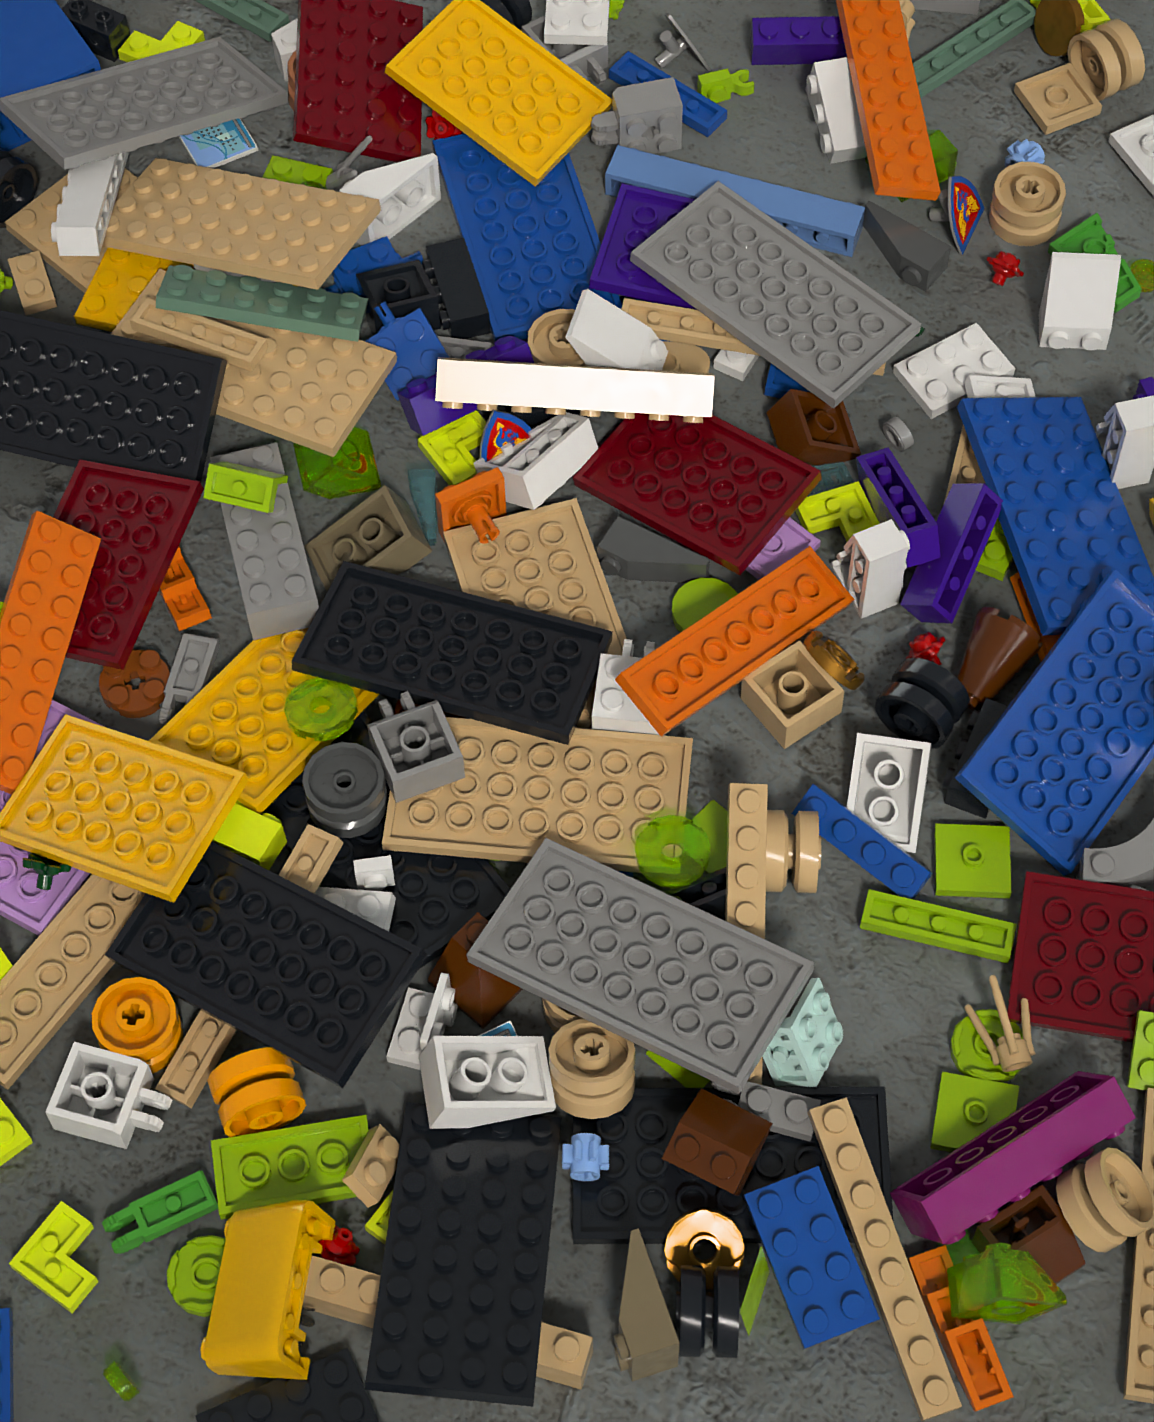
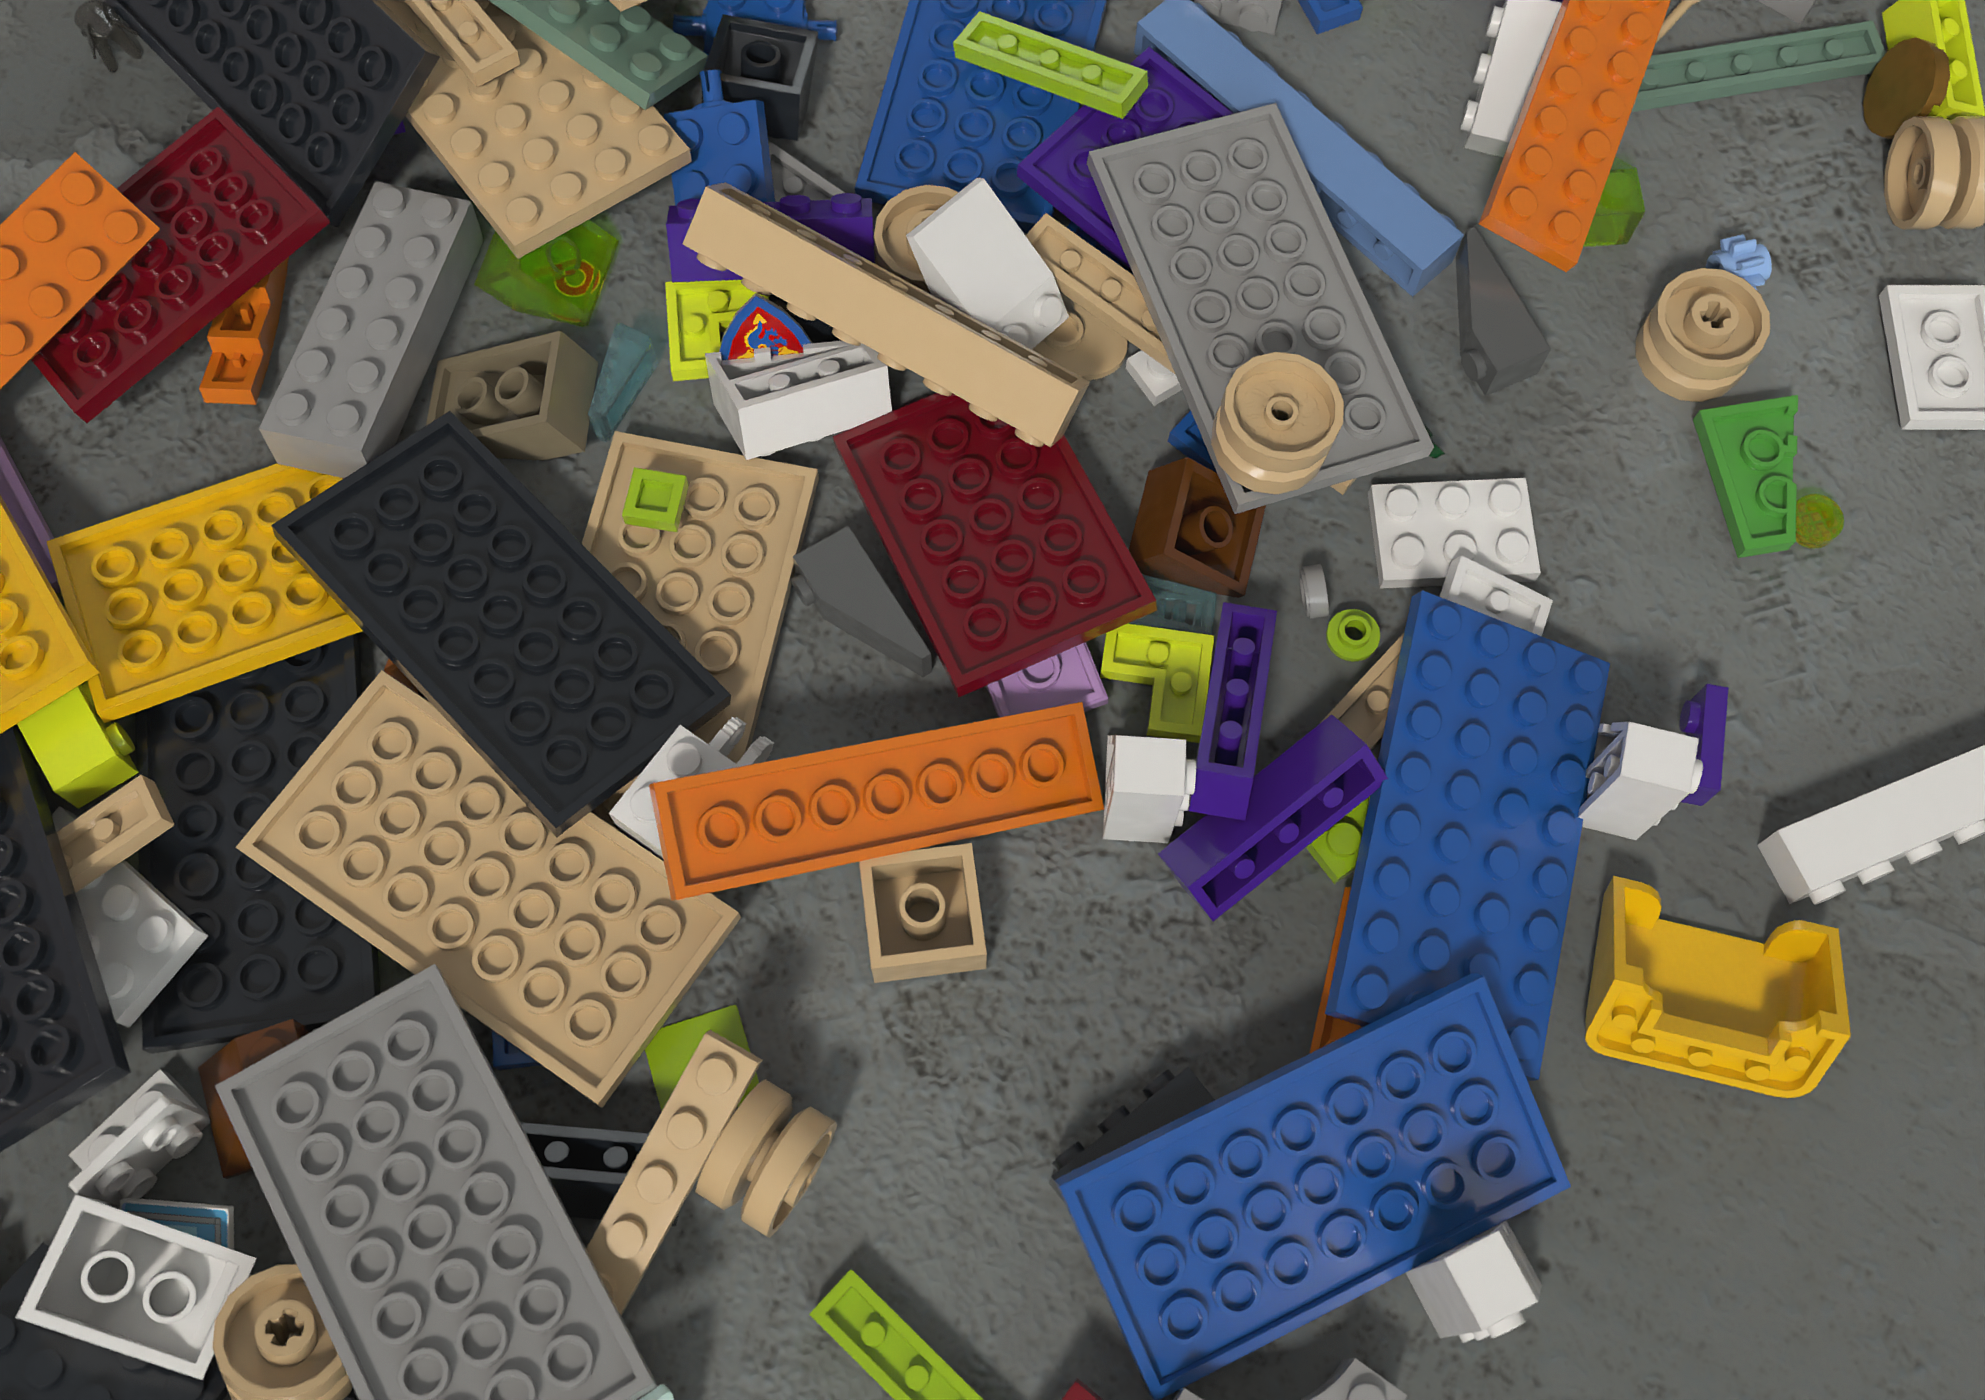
camera: 25 degrees right, 10 degrees up
(141, 701) = (137, 461): dark orange plate -> none
(189, 672) = (178, 466): light grey hinge -> none
(242, 486) = (371, 241): lime panel -> none
(315, 693) = (269, 585): clear neon green tile -> none
(345, 789) = (231, 744): dark grey wheel -> none
(374, 873) = (200, 887): white plate -> none
(415, 748) = (366, 721): light grey hinge -> none
(457, 289) = (846, 95): black brick -> none
(473, 504) = (666, 413): orange plate -> none
(497, 553) = (655, 499): none -> lime plate
(572, 216) = (1051, 64): none -> lime plate
(667, 870) = (620, 1101): clear neon green tile -> none
(699, 599) = (893, 704): lime tile -> none
(833, 344) = (1277, 422): none -> tan wheel
(834, 660) = (1009, 893): pearl gold tile -> none
(865, 844) = (888, 1191): blue plate -> none
(890, 786) = (969, 1128): white slope -> none
(922, 702) = (1091, 1027): black wheel -> none
(926, 647) = (1156, 938): red plant -> none
(930, 455) = (1348, 648): none -> lime plate
(961, 208) = (1602, 300): shield -> none
(972, 860) = (1029, 1299): lime plate -> none
(995, 654) = (1236, 1007): reddish brown cone -> none
(1005, 266) = (1615, 413): red plant -> none
(1057, 98) = (1841, 198): tan plate -> none
(1079, 300) = (1686, 521): white slope -> none

